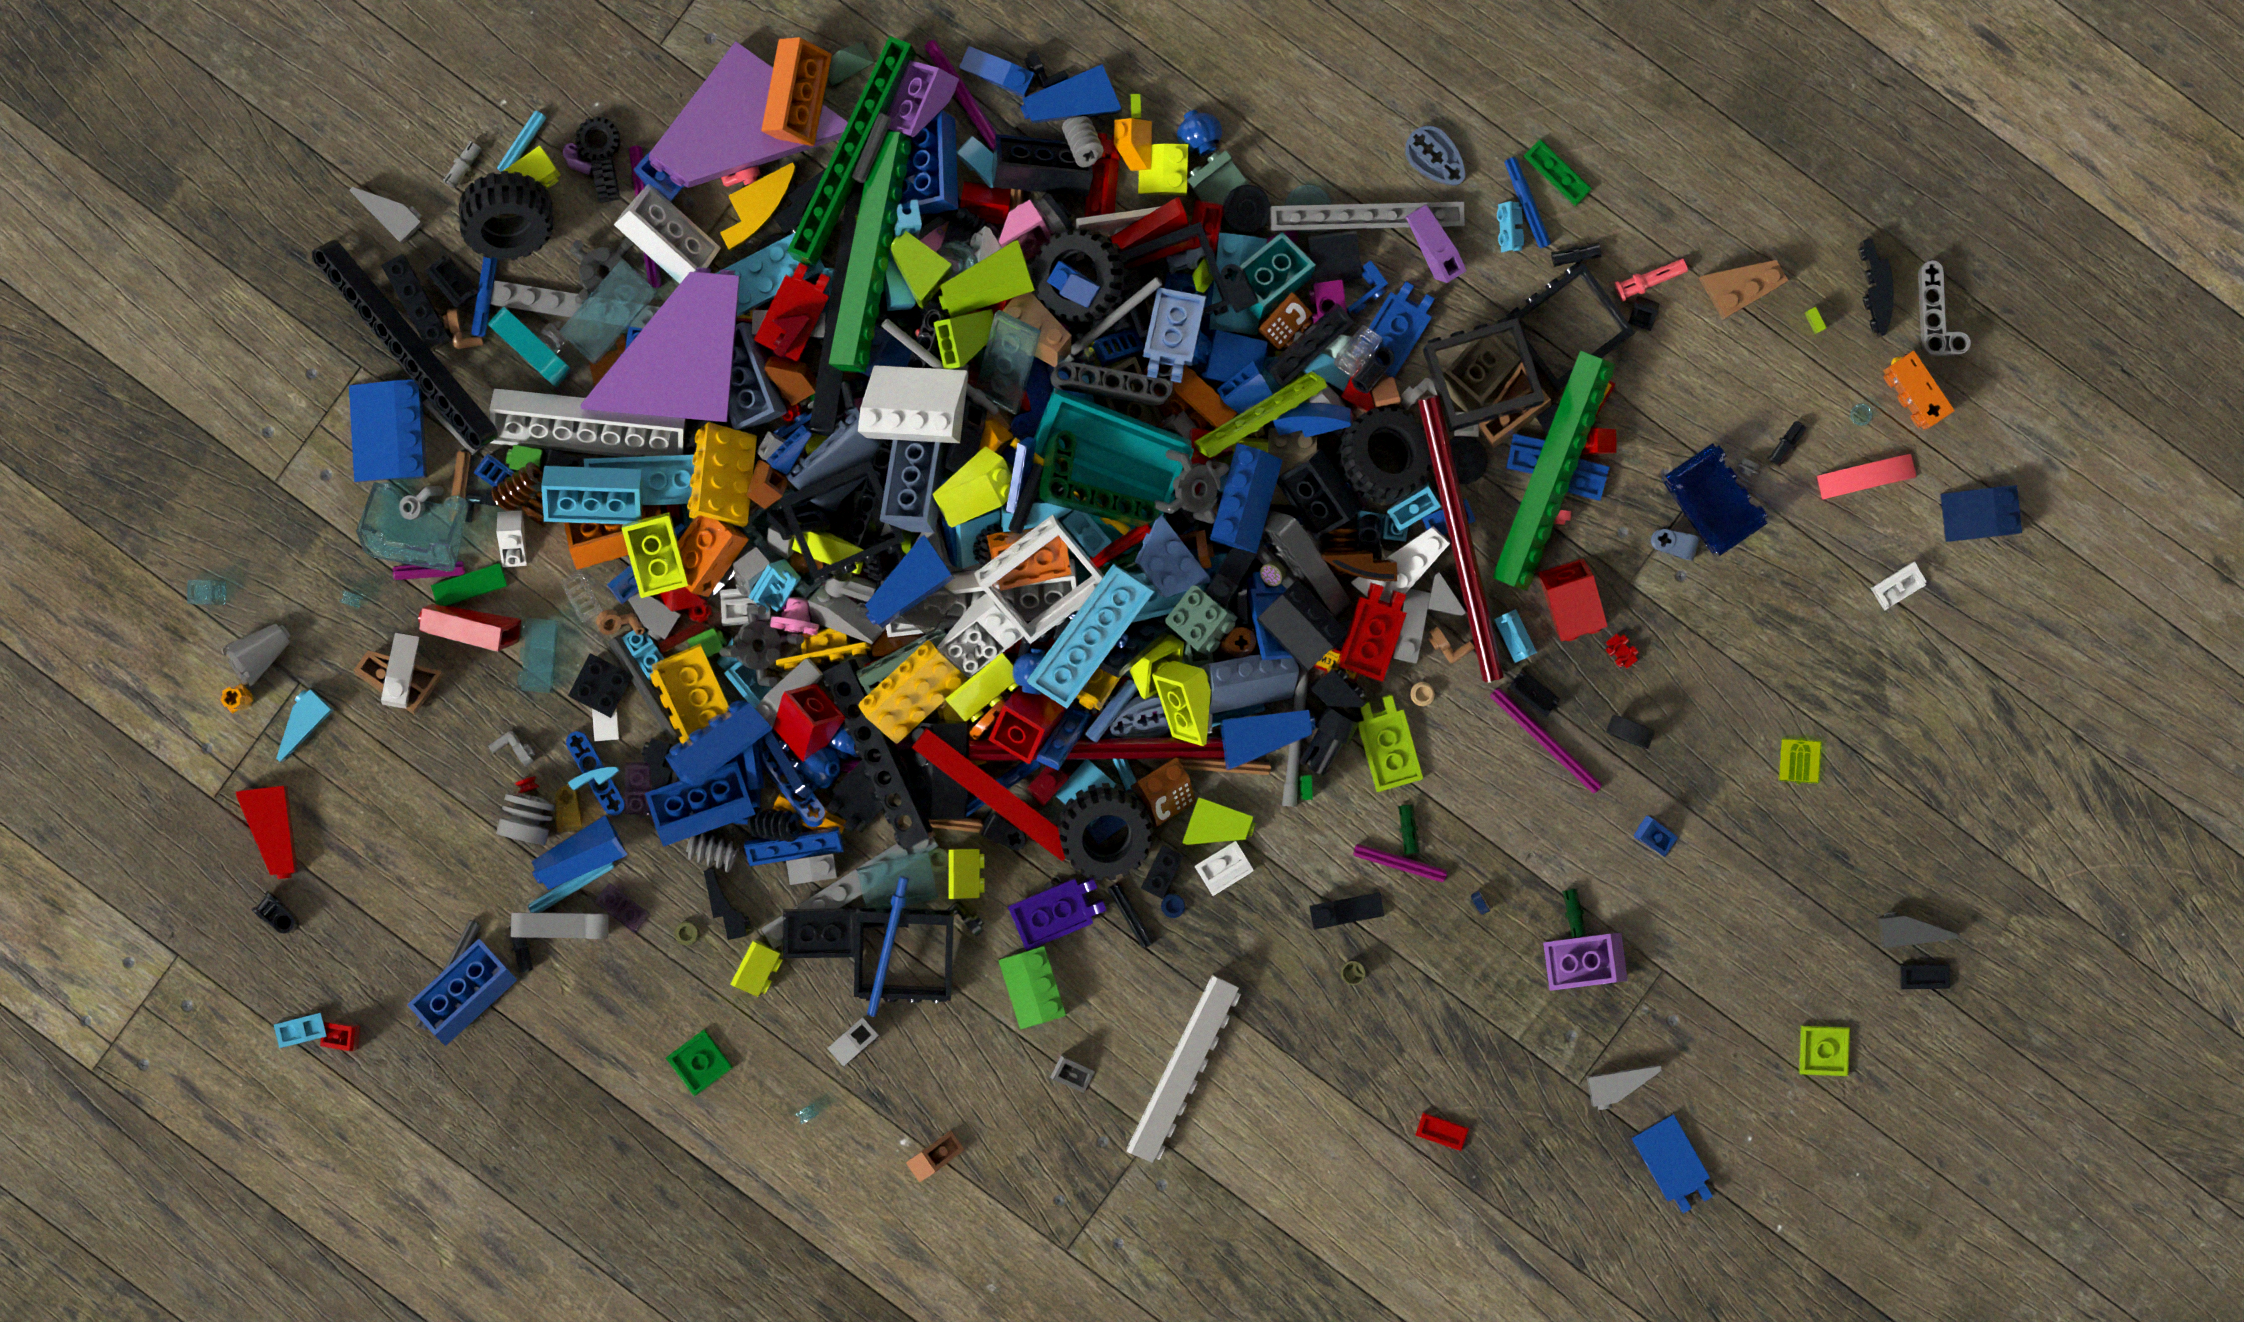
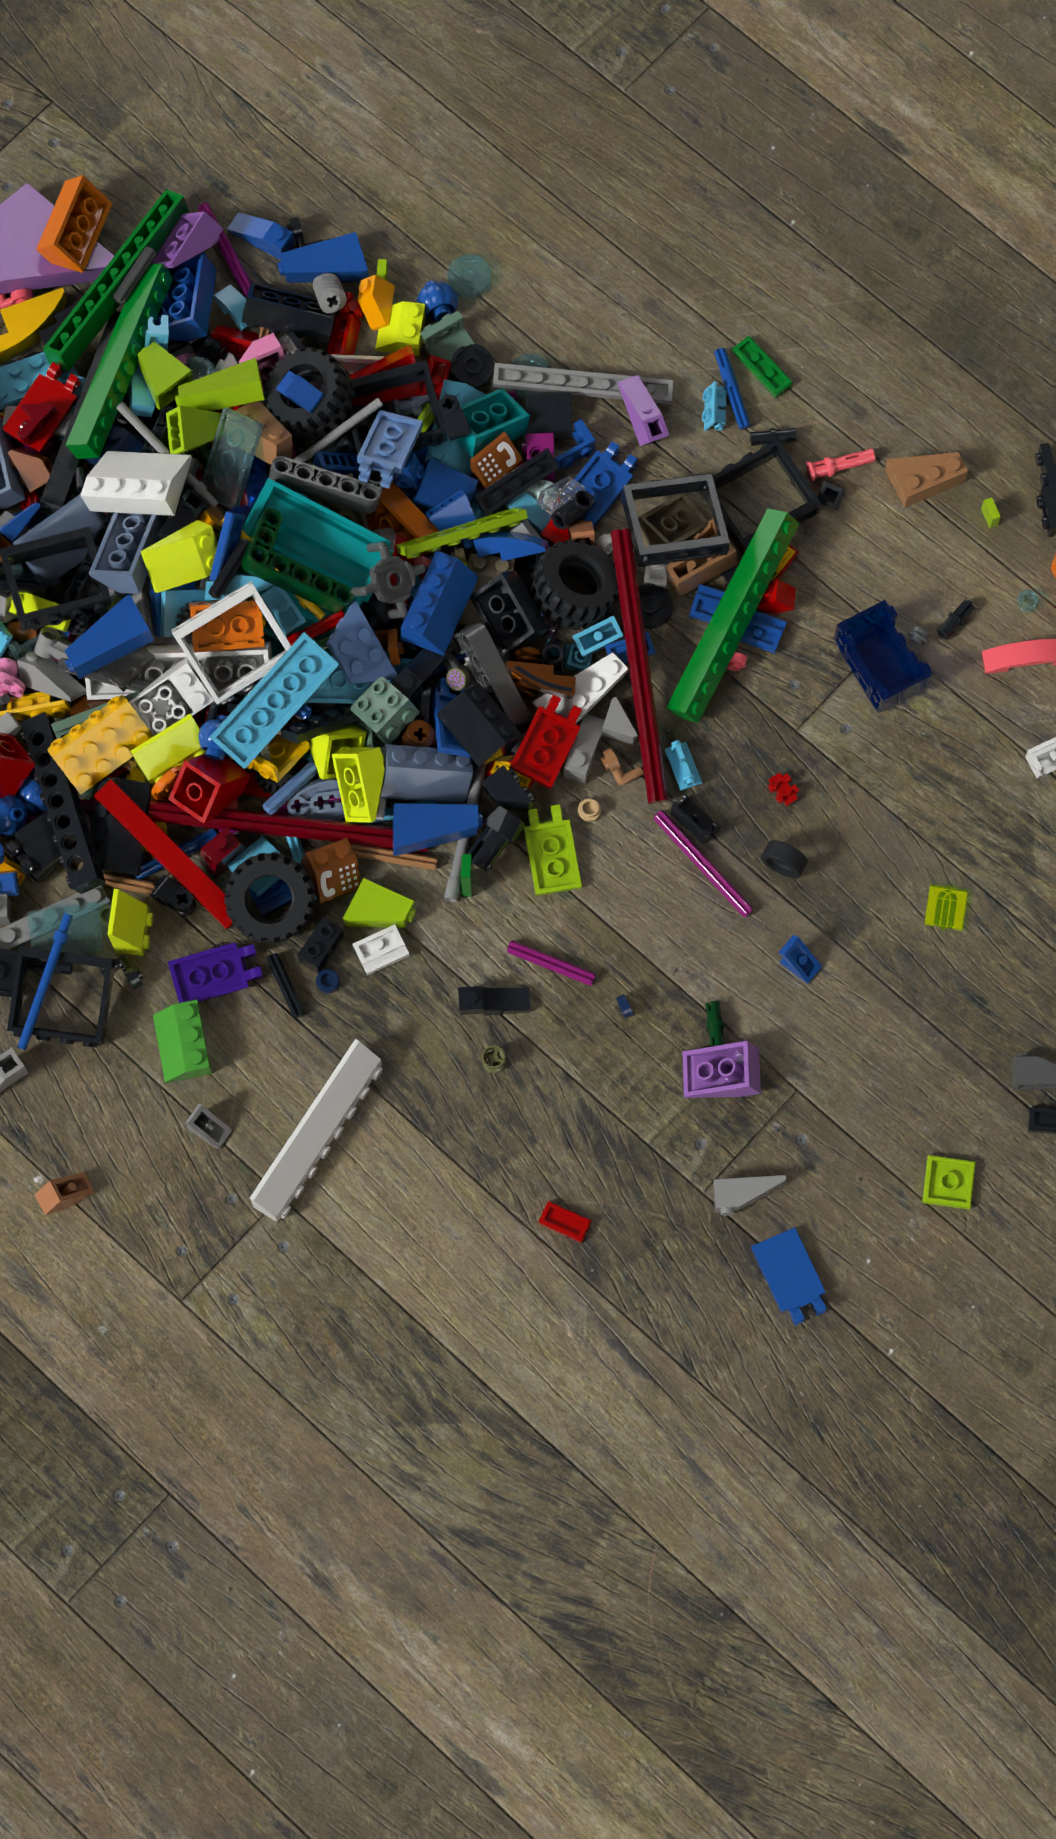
camera: 10 degrees right, 15 degrees down
(848, 62) = (125, 214): sand green slope -> none
(1064, 737) = (241, 807): blue tile -> none
(1229, 97) = (469, 275): none -> clear light blue tile
(1408, 829) = (562, 931): dark green pin -> none
(1442, 144) = (657, 332): sand blue piece -> none
(1573, 599) = (741, 737): red slope -> none
(1679, 543) = (845, 696): sand blue piece -> none

